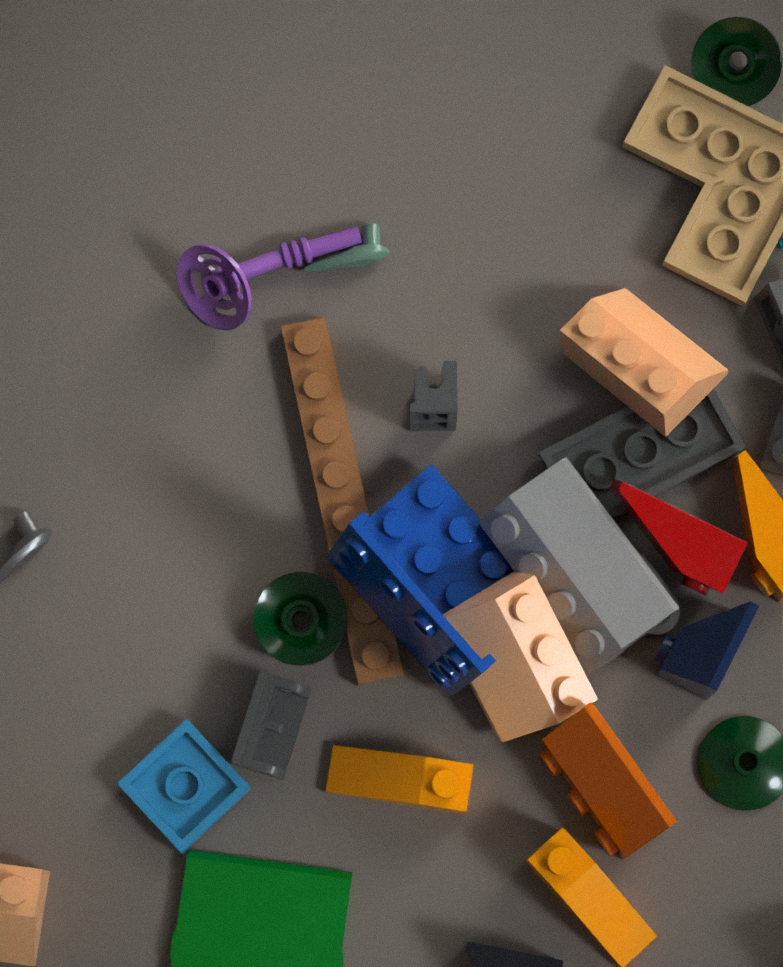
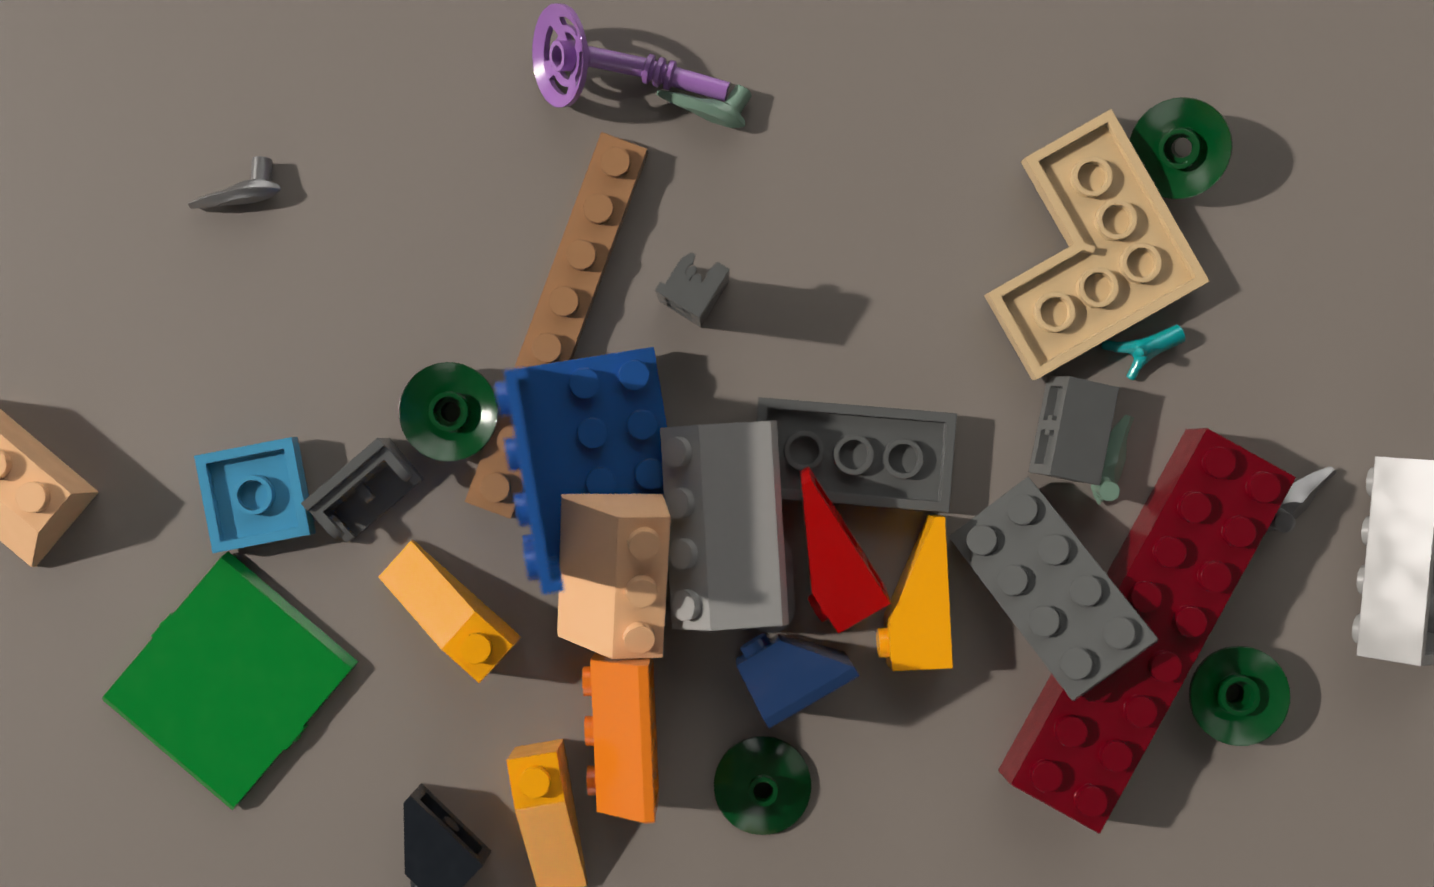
camera: 30 degrees right, 10 degrees up
(640, 358) = (907, 370): light nougat slope -> none

